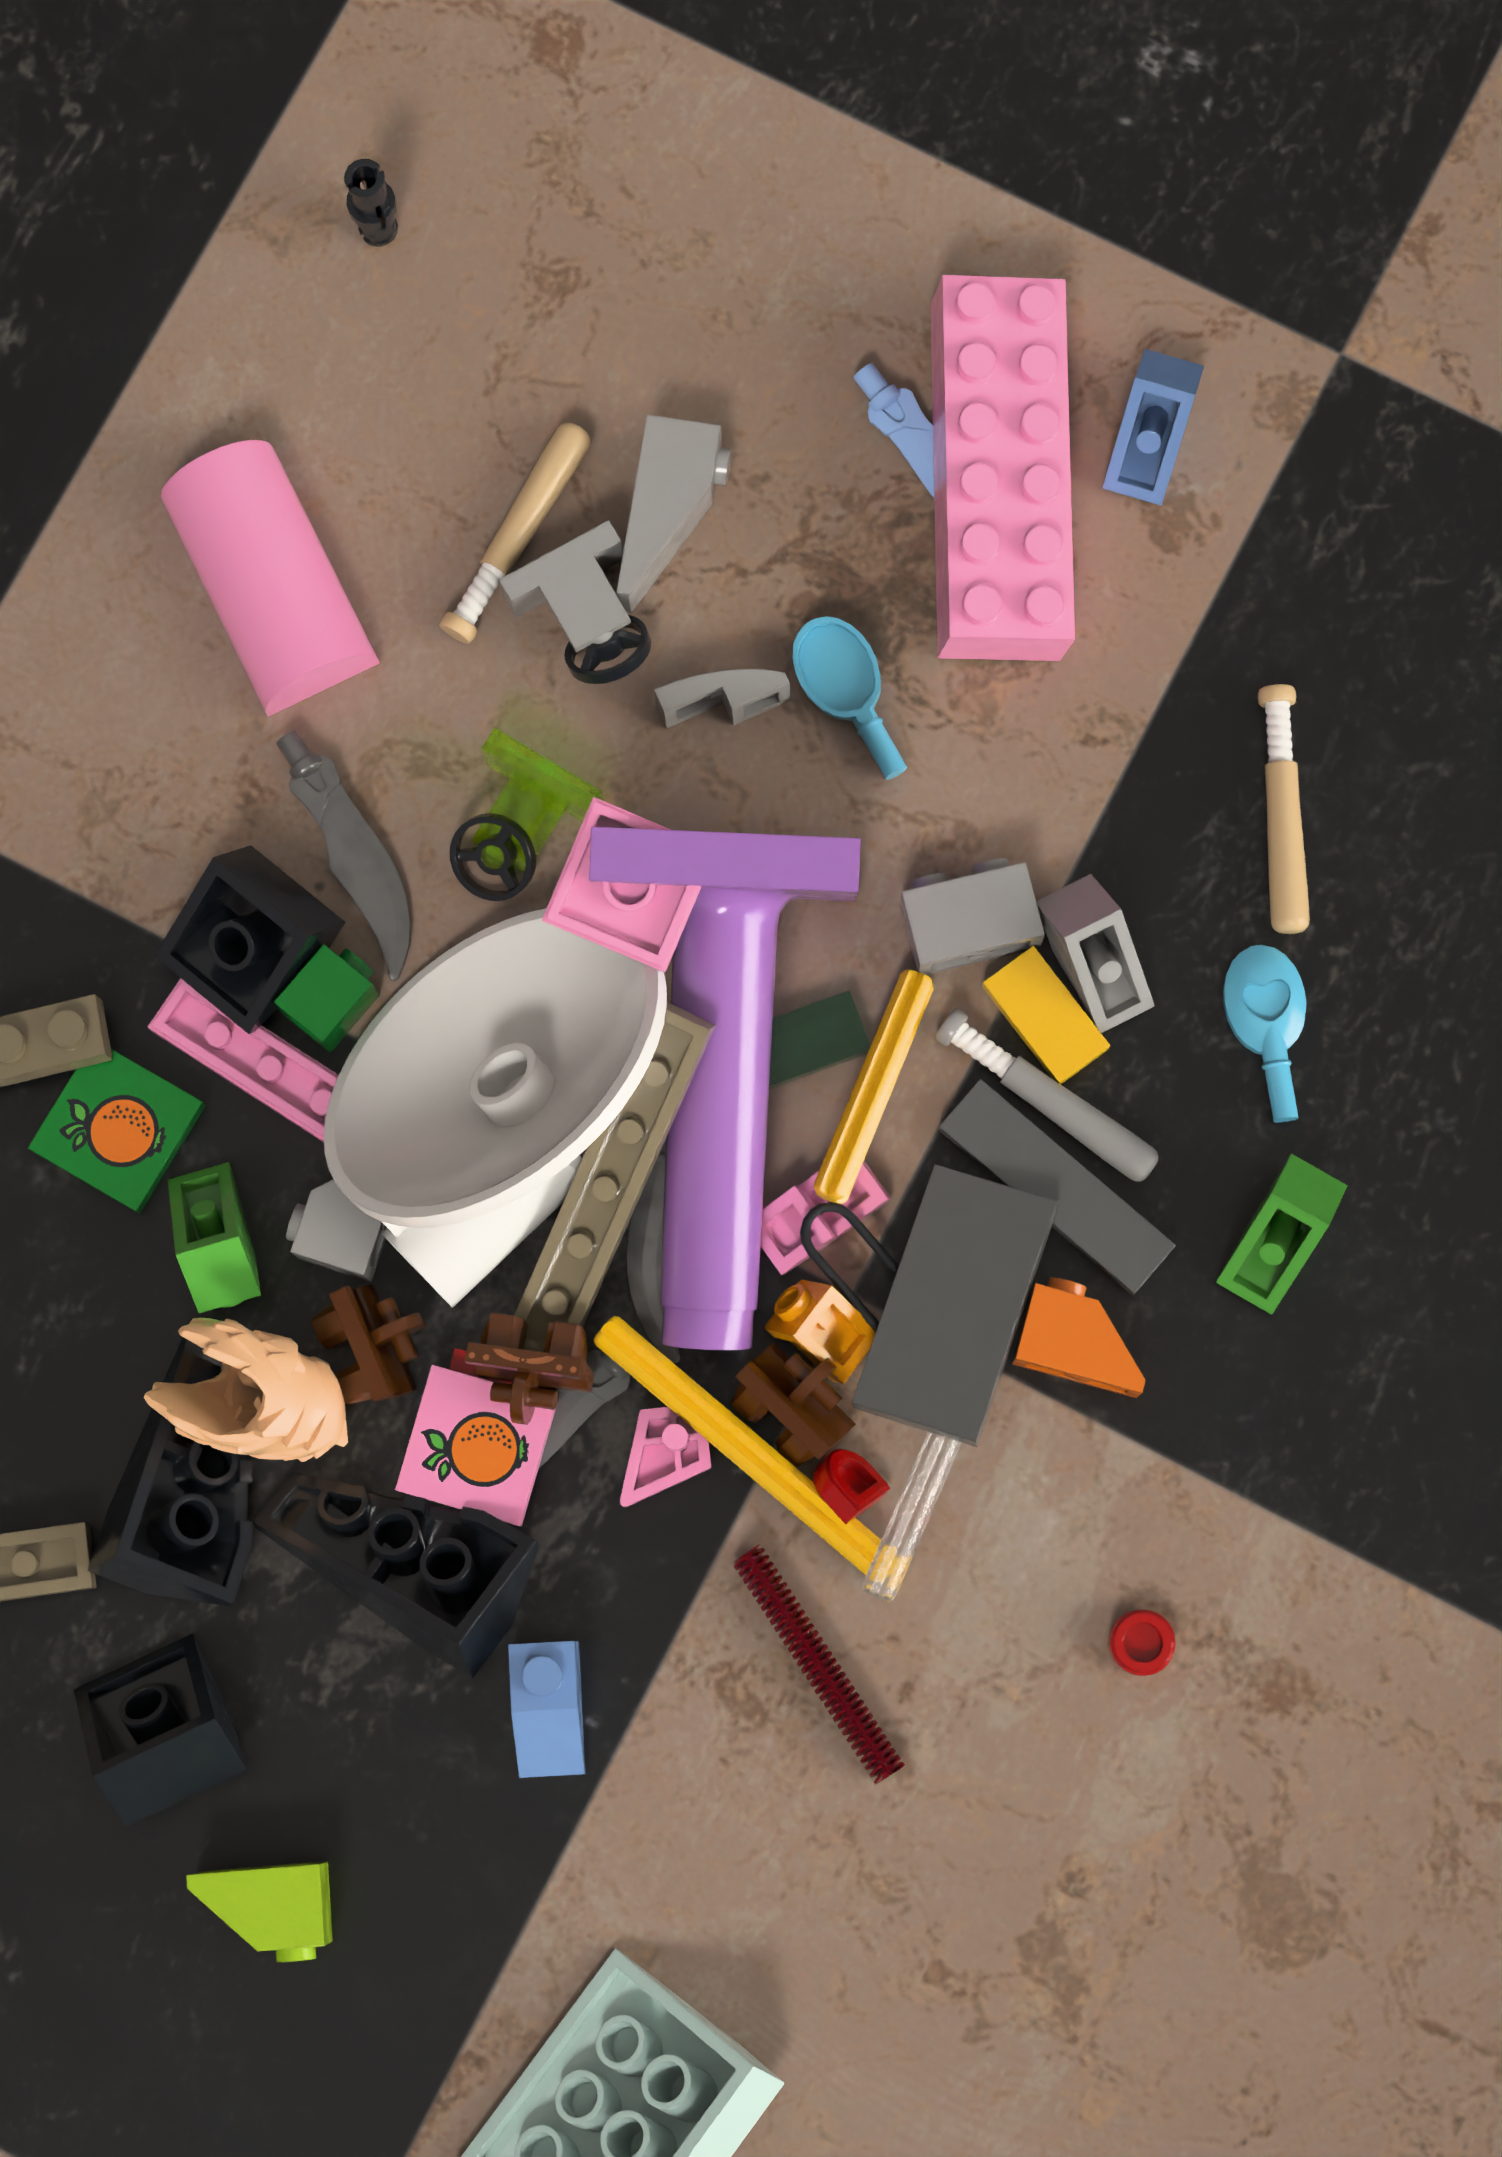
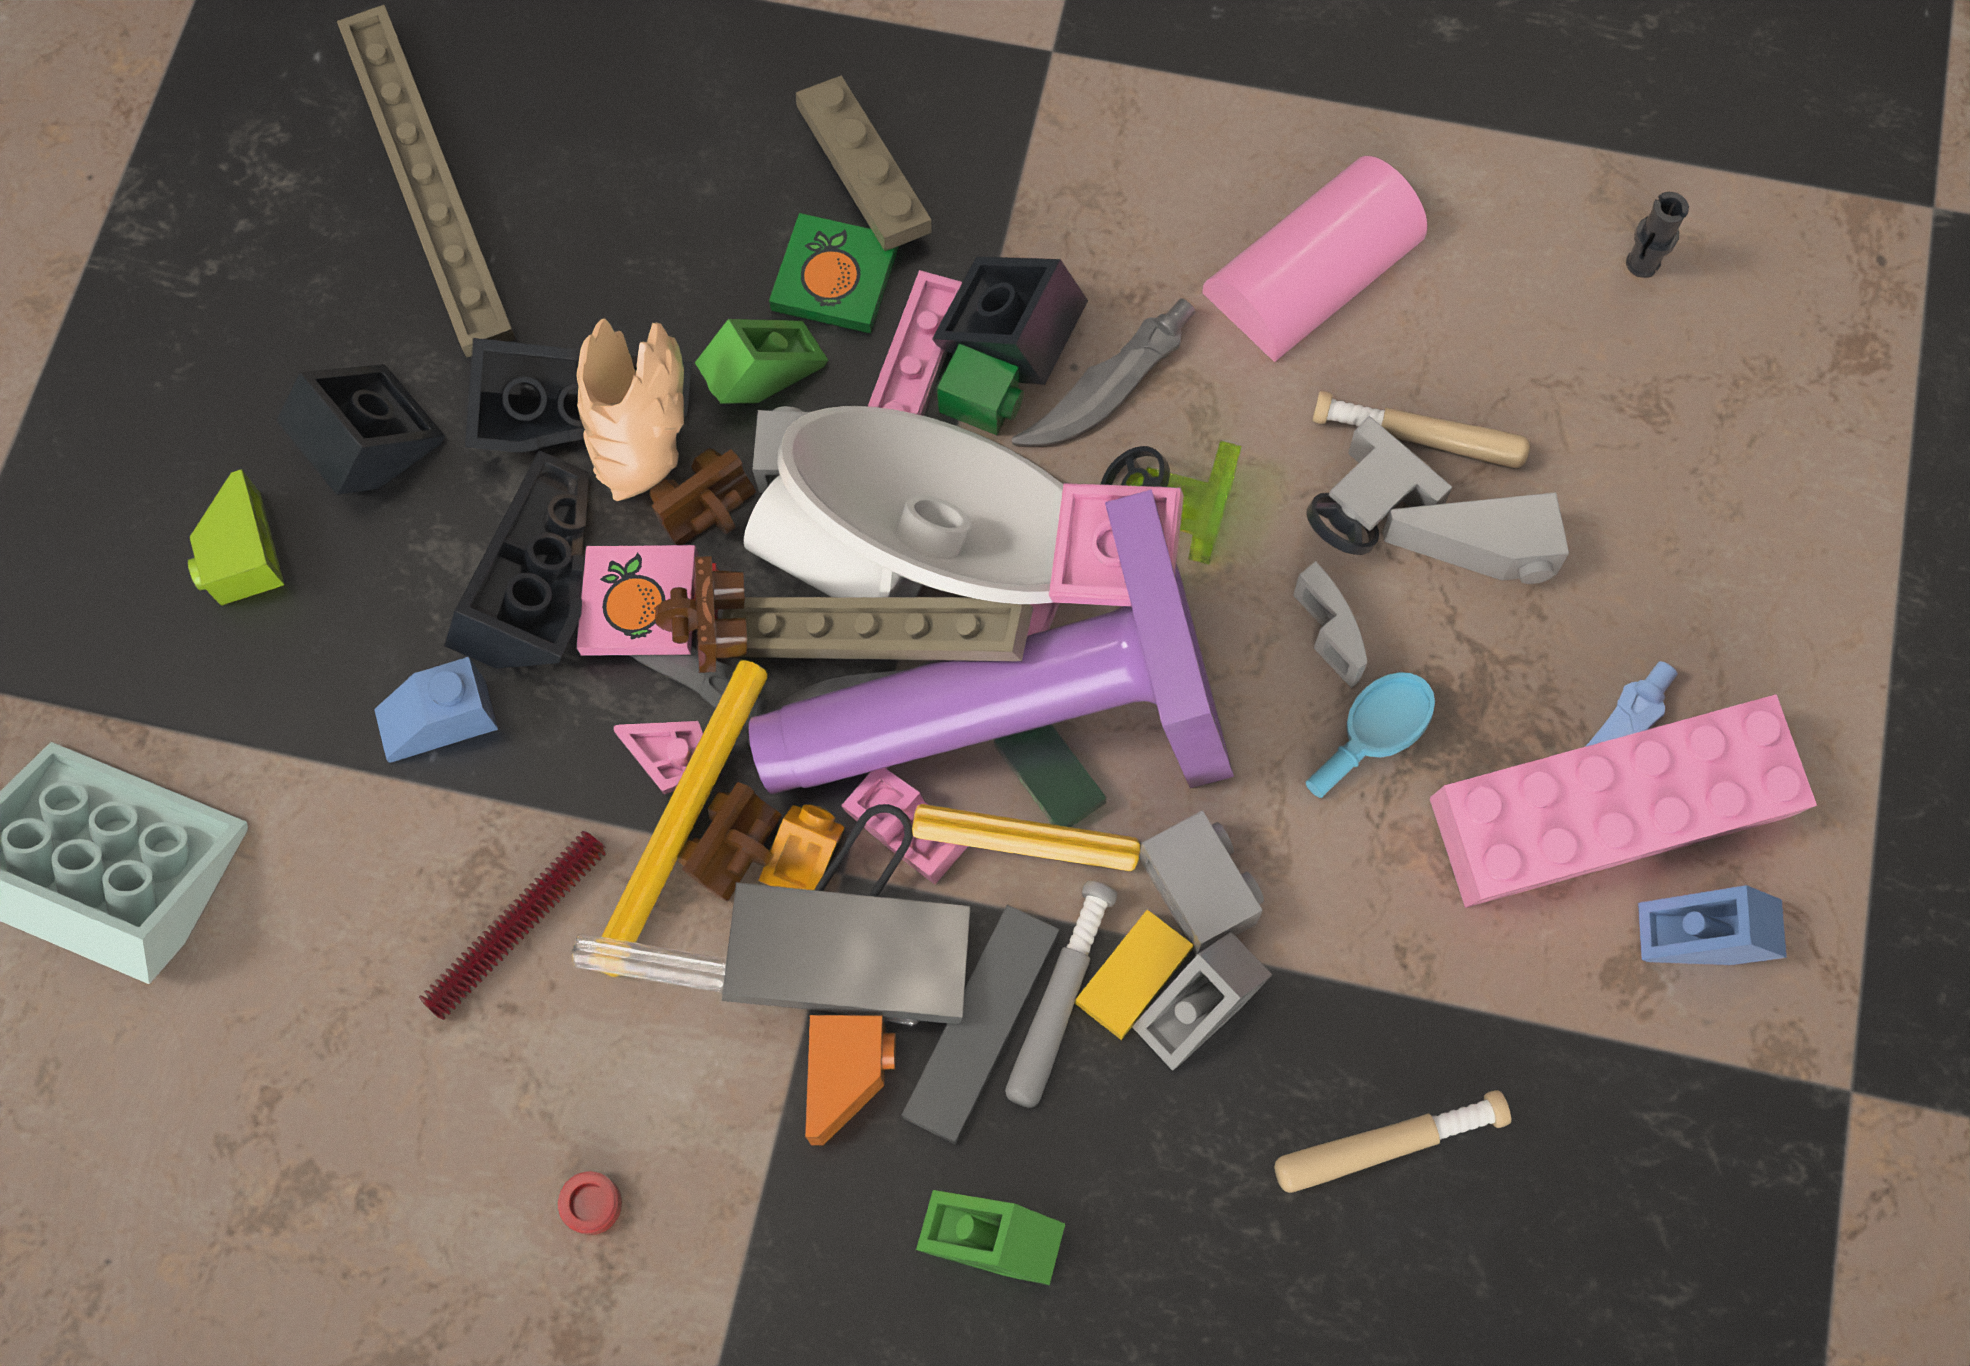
camera: 75 degrees right, 10 degrees down
(848, 1484) = (672, 907): red tile -> none
(1267, 1013) = (1193, 1177): medium azure piece -> none

